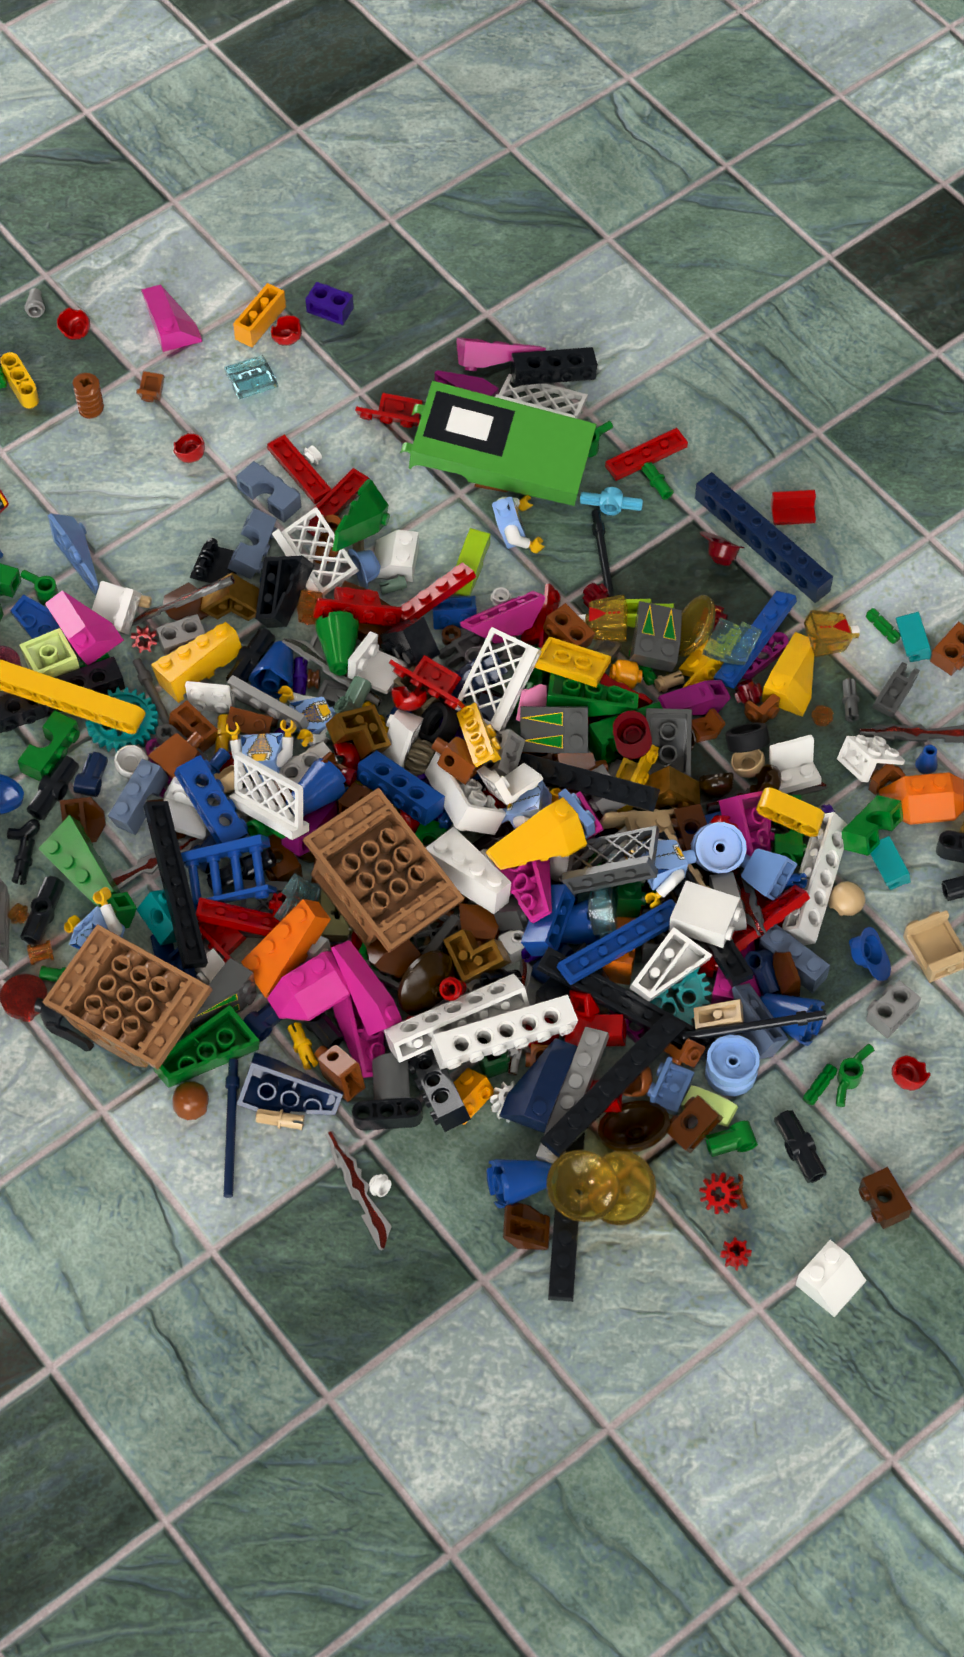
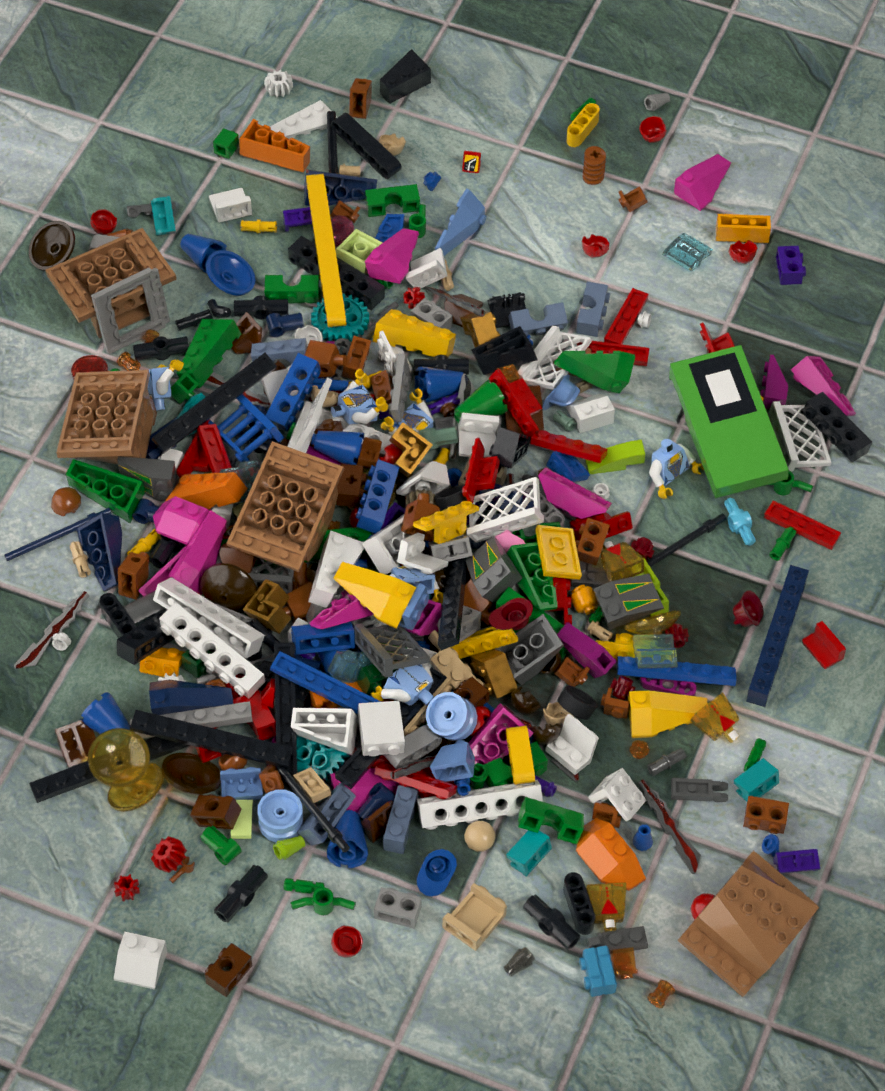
camera: 60 degrees right, 5 degrees down
(350, 776) = (365, 459): dark red hinge -> none
(408, 700) = (455, 464): red hair -> none
(452, 988) = (227, 601): red cone -> none
(768, 1077) = (287, 847): none -> lime cone

